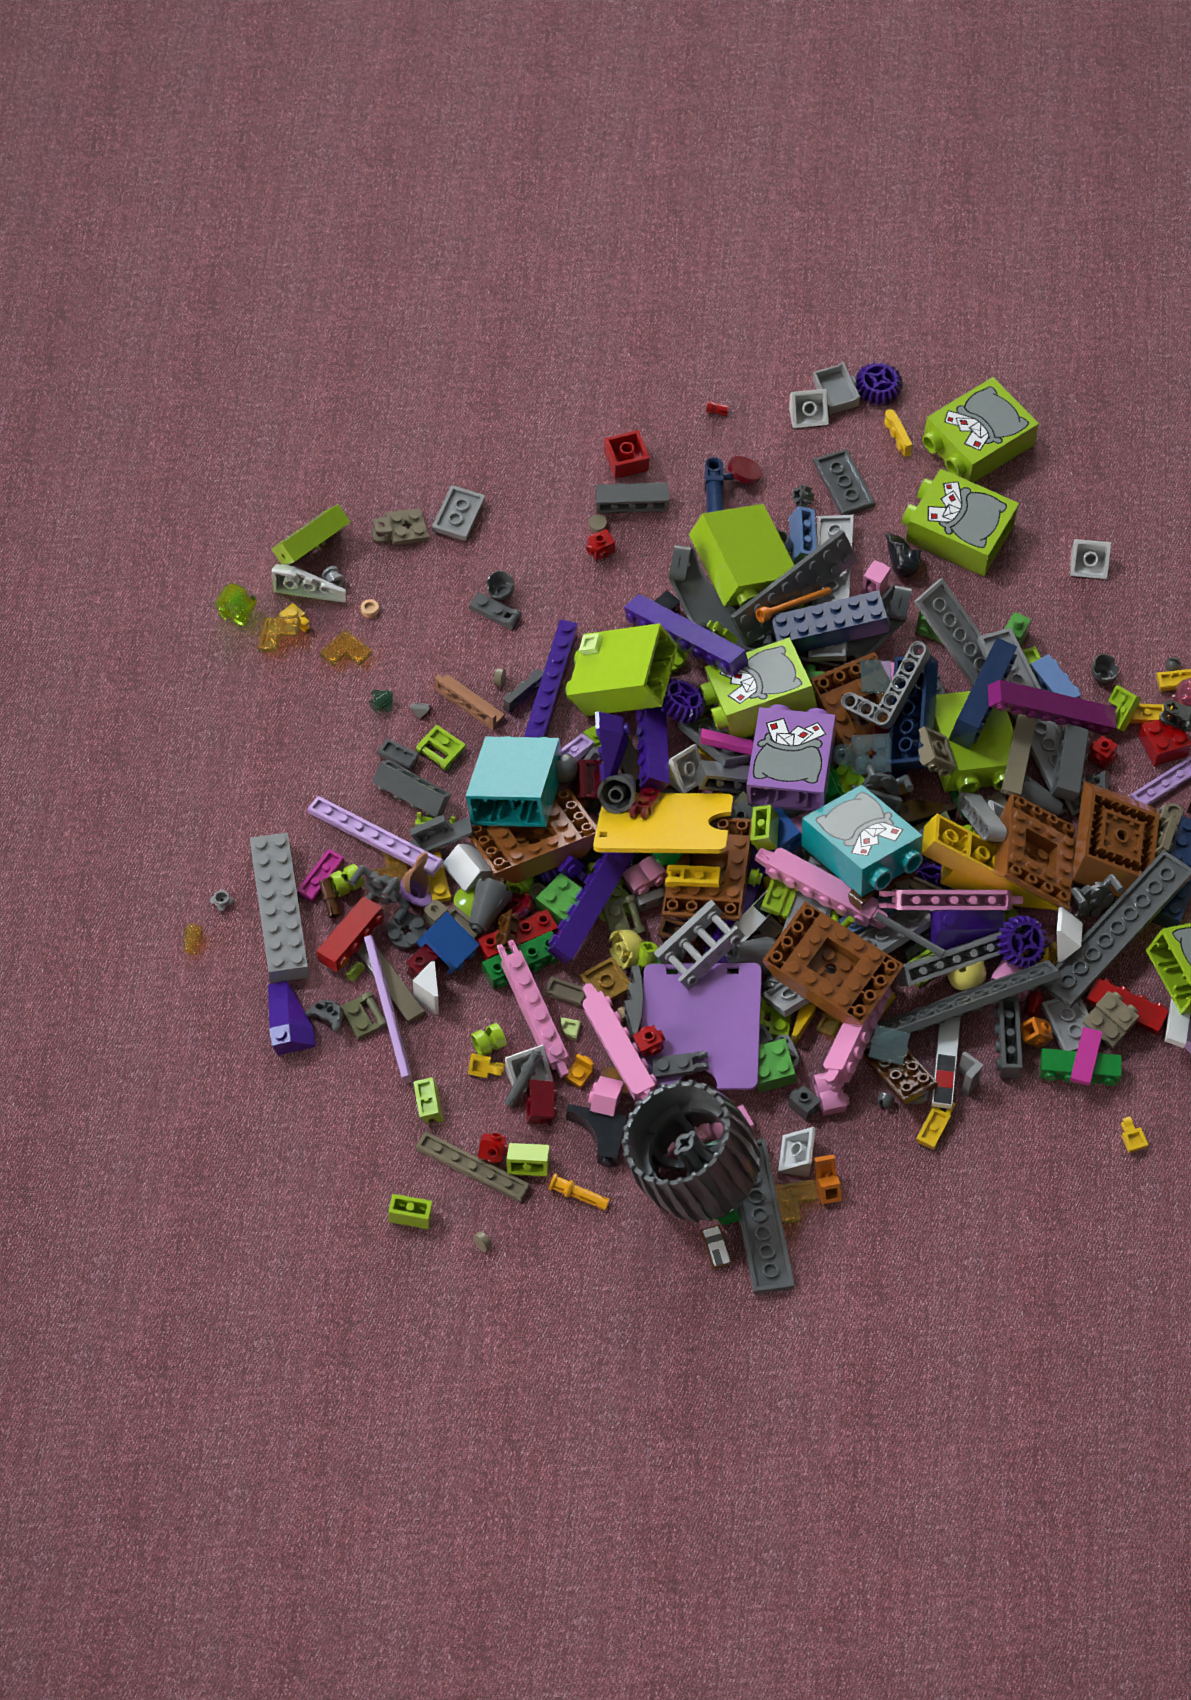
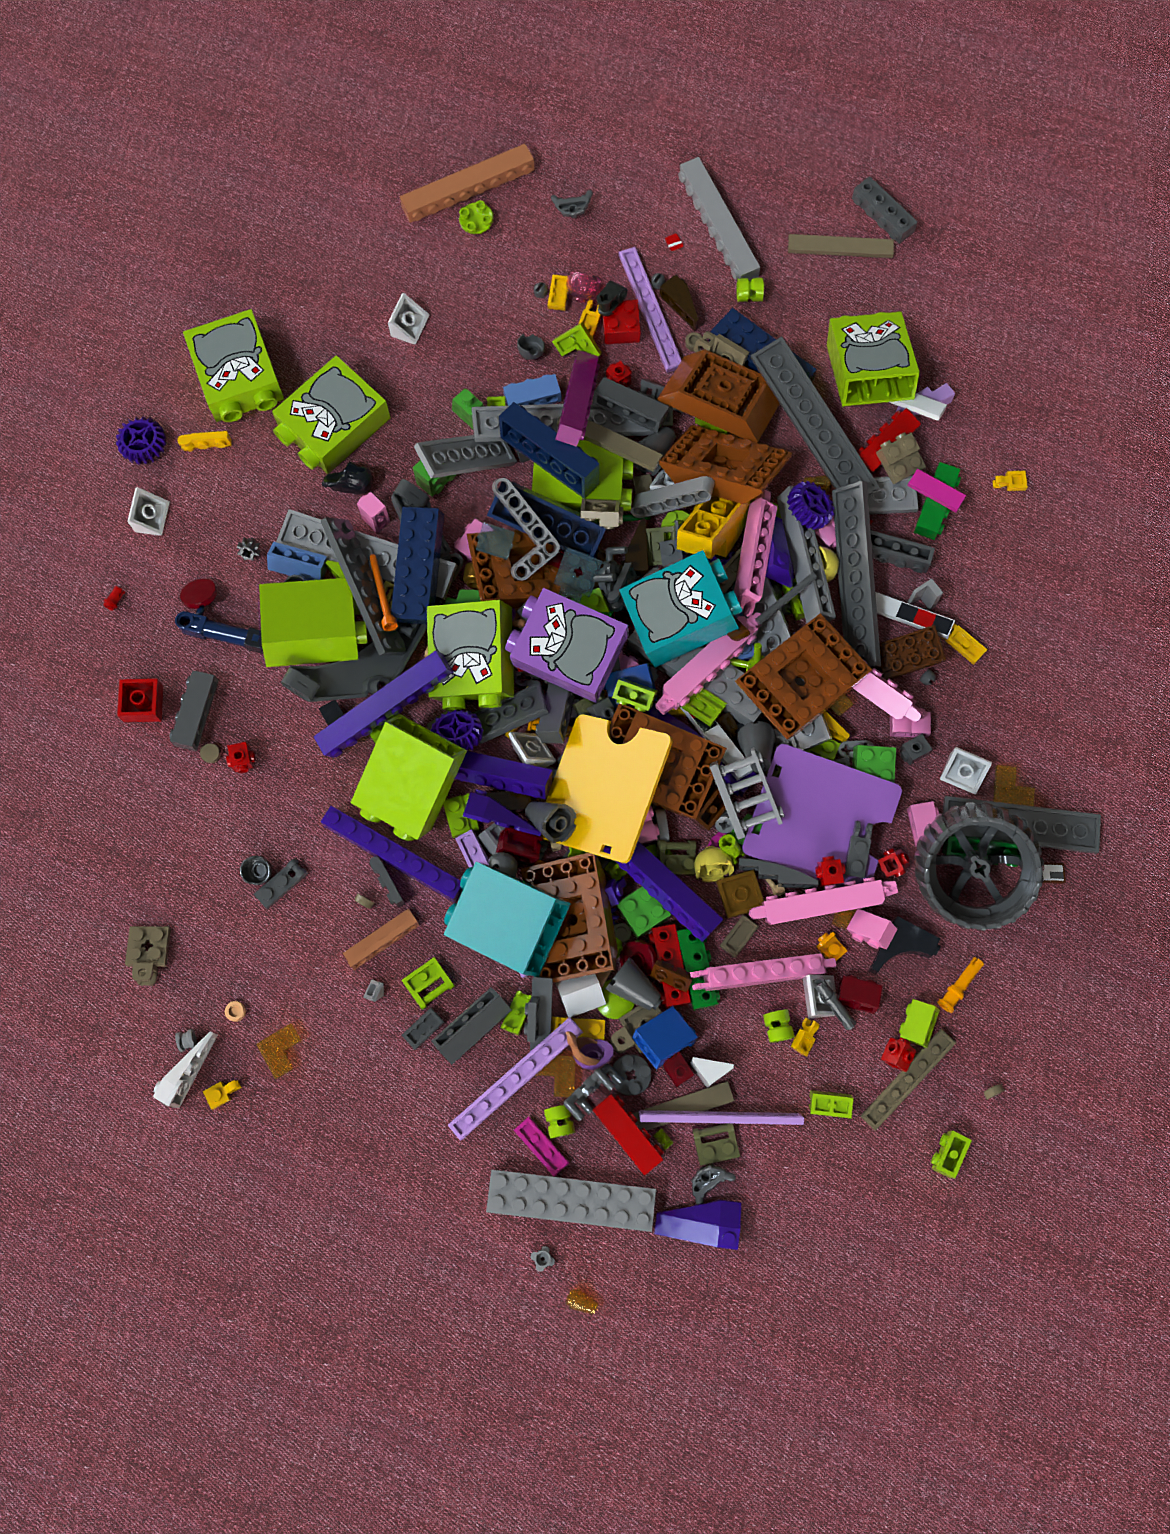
camera: 70 degrees left, 15 degrees up
(235, 603) = (187, 1154): clear neon green brick -> none
(274, 628) = (230, 1119): clear yellow plate -> none
(311, 535) = (130, 1050): lime brick -> none
(329, 898) = (574, 1144): reddish brown pin -> none
(382, 700) = (353, 1028): clear green piece -> none
(458, 513) = (149, 888): light grey plate -> none
(570, 1028) = (780, 942): yellowish green tile -> none
(590, 643) = (369, 798): yellowish green tile -> none
(645, 802) = (564, 795): dark red hinge -> none
(693, 876) = (671, 776): yellow plate -> none
(717, 629) = (393, 670): lime plate -> none
(726, 741) = (519, 700): dark pink tile -> none
(754, 877) = (674, 719): lime plate -> none
(826, 1179) = (1003, 753): orange brick -> none
(839, 388) = (127, 475): light grey container -> none
(844, 482) = (242, 508): dark grey tile -> none
(889, 1045) = (887, 654): clear light blue piece -> none
(1036, 1032) = (894, 524): orange brick -> none
(1068, 934) = (813, 465): white slope -> none
(1101, 897) = (778, 438): dark grey plate -> none

